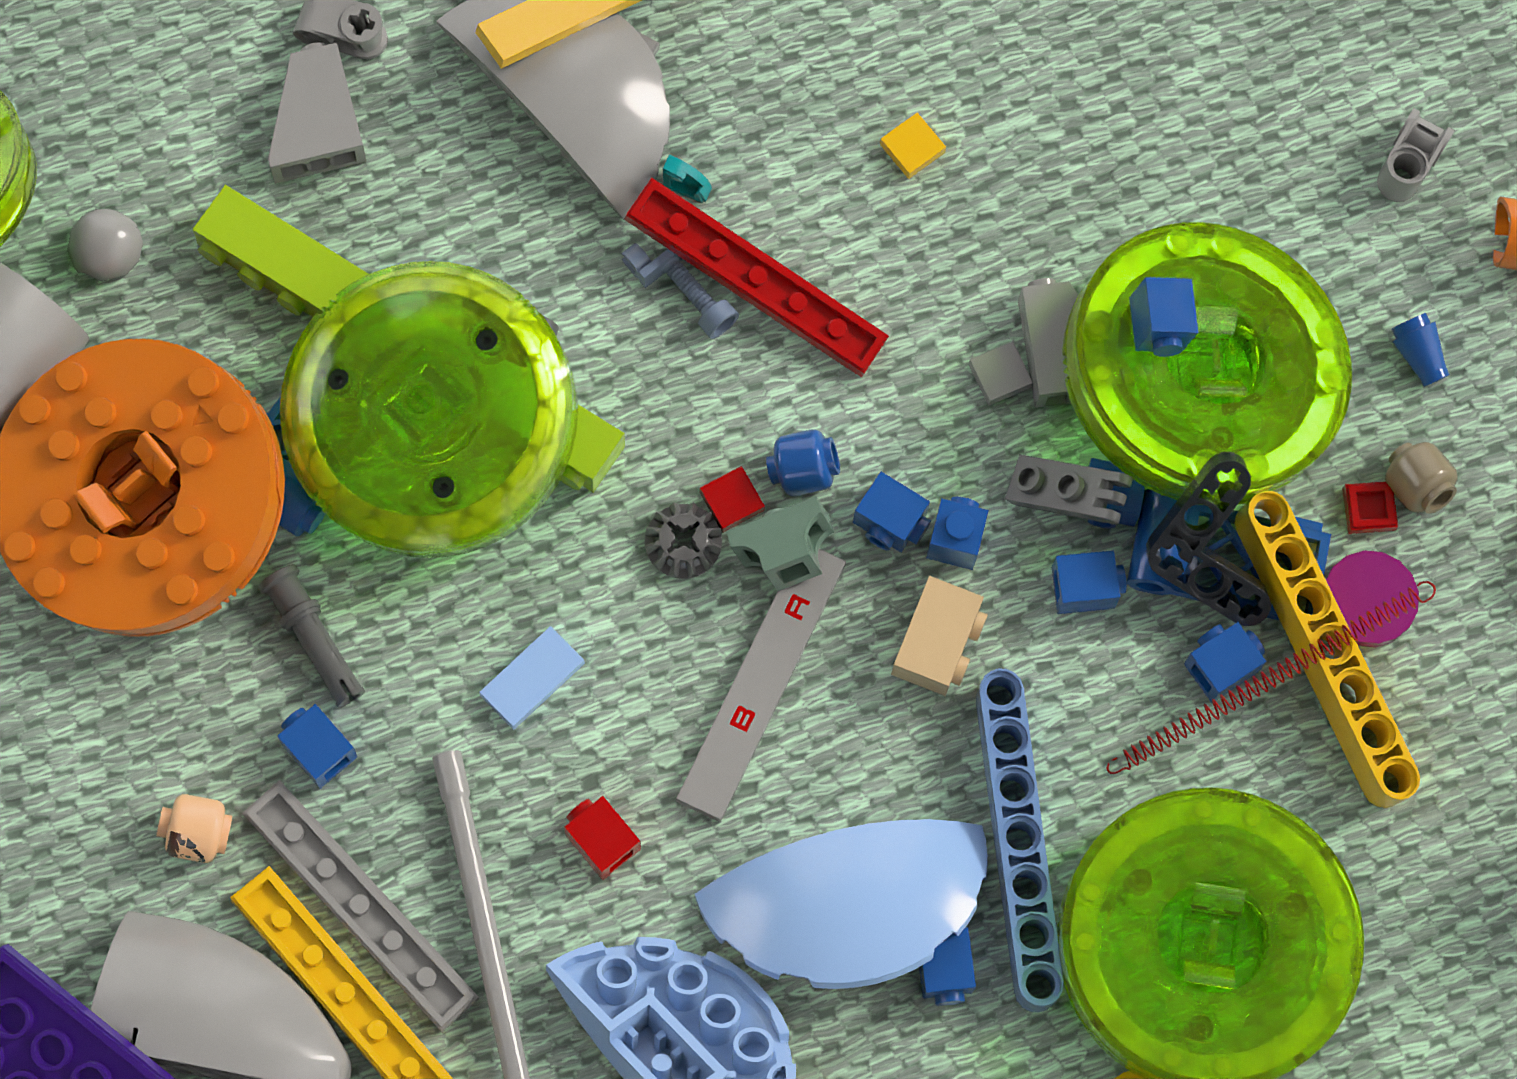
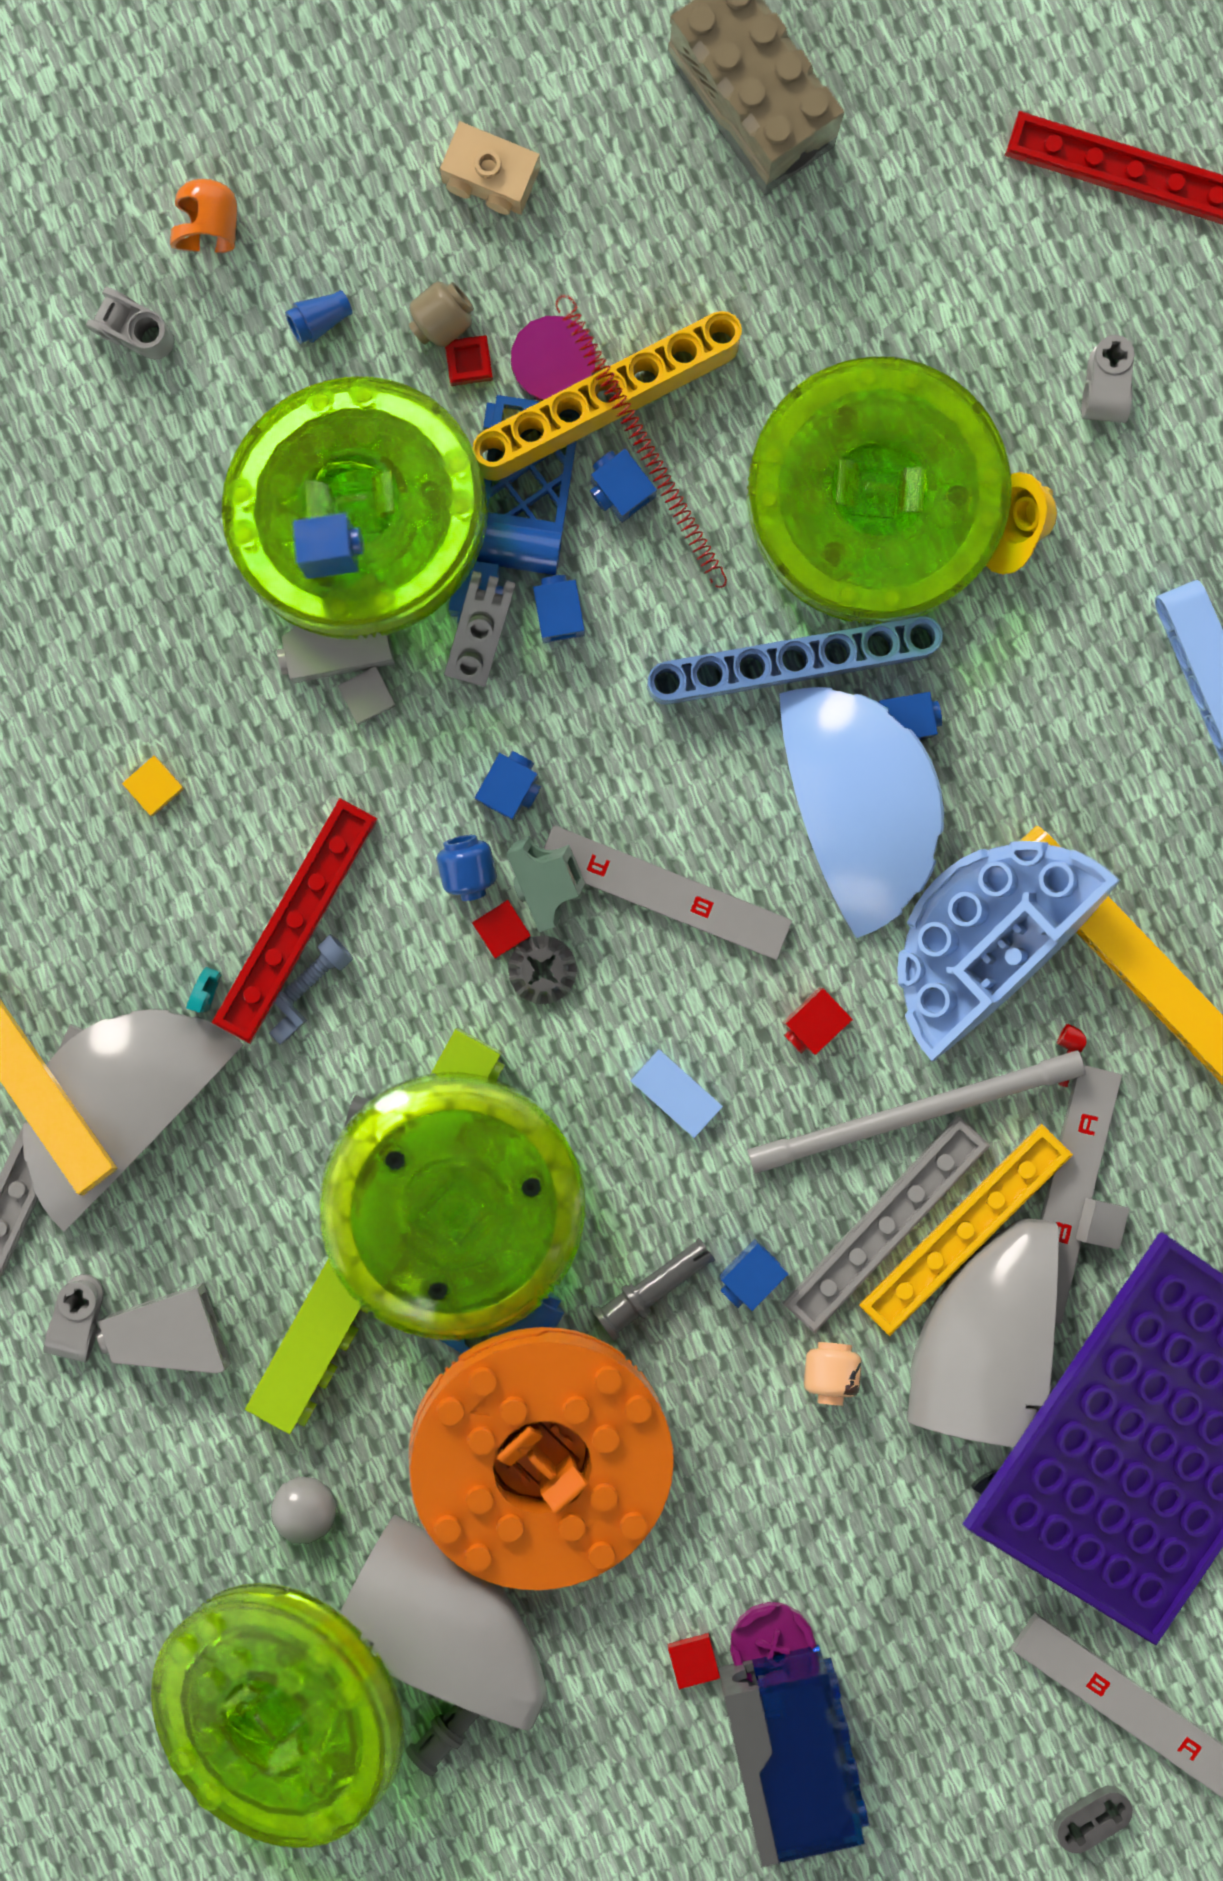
camera: 90 degrees left, 15 degrees up
(938, 636) = (619, 738): tan brick -> none
(957, 532) = (521, 726): blue brick -> none
(1192, 541) = (527, 513): black beam -> none

